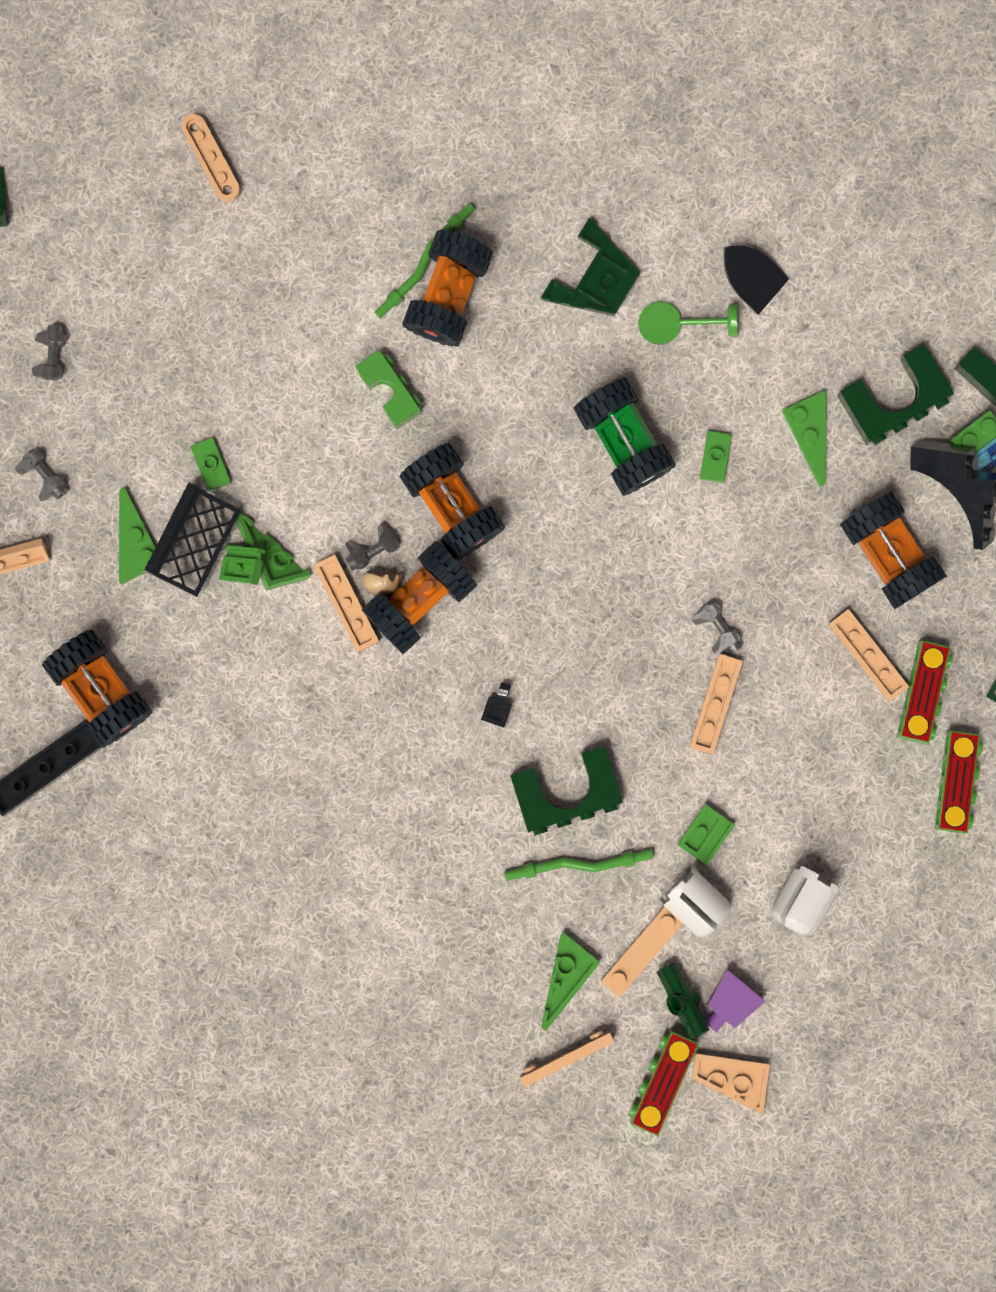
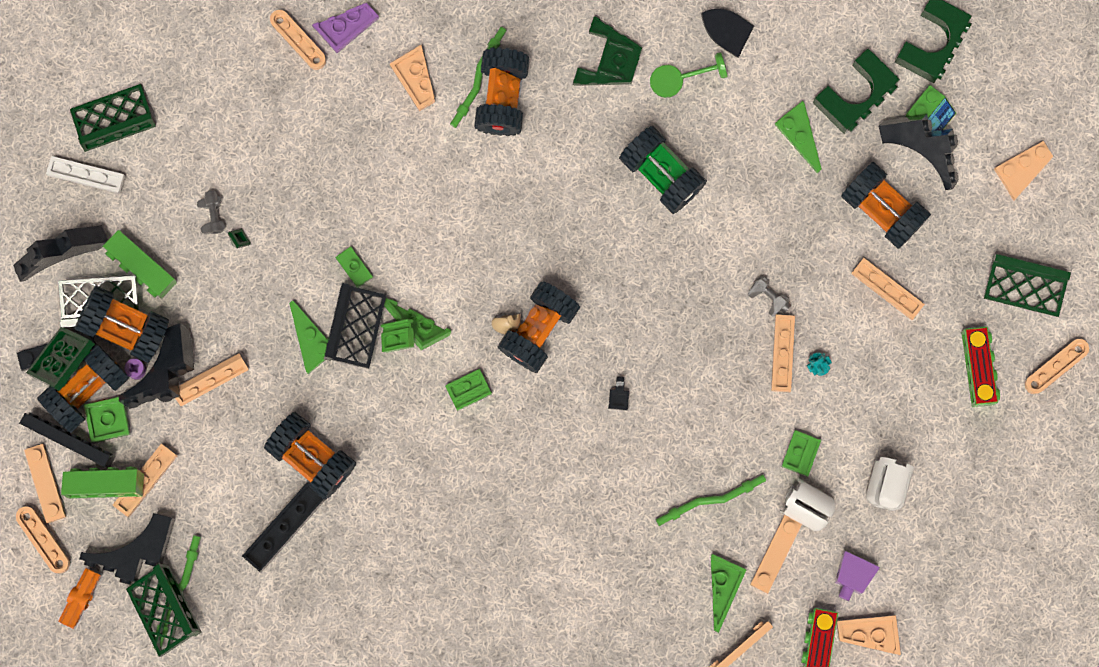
camera: 15 degrees left, 5 degrees down
(52, 485) = (237, 312): flat silver piece -> none
(76, 393) = (238, 238): none -> dark green slope
(275, 156) = (344, 28): none -> medium lavender wing
(313, 653) = (468, 390): none -> bright green plate
(344, 239) = (414, 77): none -> light nougat wing
(346, 603) = (483, 346): light nougat plate -> none
(359, 557) = (484, 308): flat silver piece -> none
(378, 371) = (464, 166): bright green arch -> none
(450, 501) = (543, 249): black plate -> none
(540, 814) = (714, 442): dark green arch -> none
(683, 1001) = (817, 583): dark green piece -> none
(715, 456) = (734, 169): bright green plate -> none
(757, 729) = (819, 364): none -> teal gear
(924, 692) = (937, 306): brick -> none

